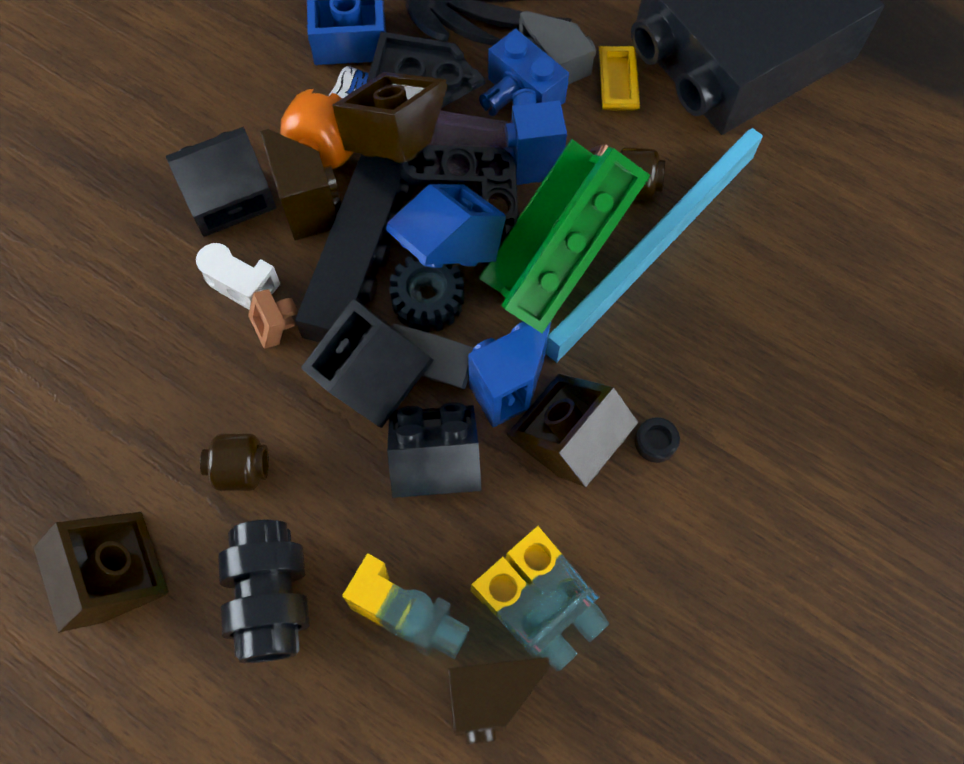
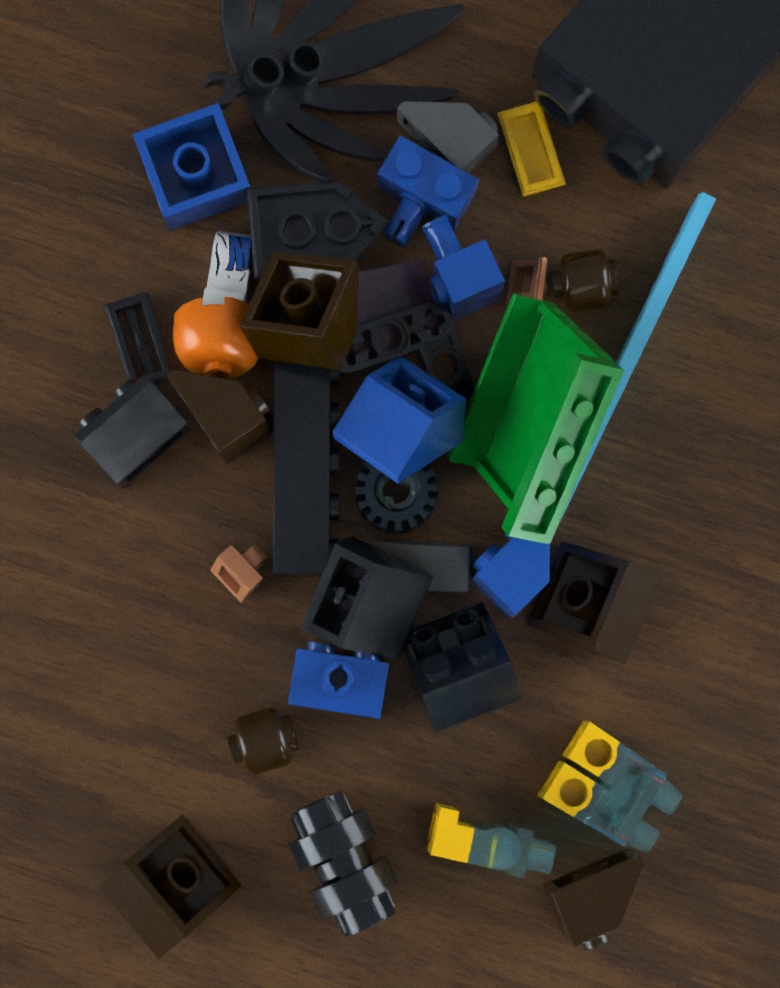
camera: 20 degrees left, 15 degrees up
(233, 276) = (183, 536): white leg -> none
(246, 121) = (128, 305): none -> black tile
(321, 432) = (337, 681): none -> blue brick
(657, 440) = (682, 586): black tile -> none

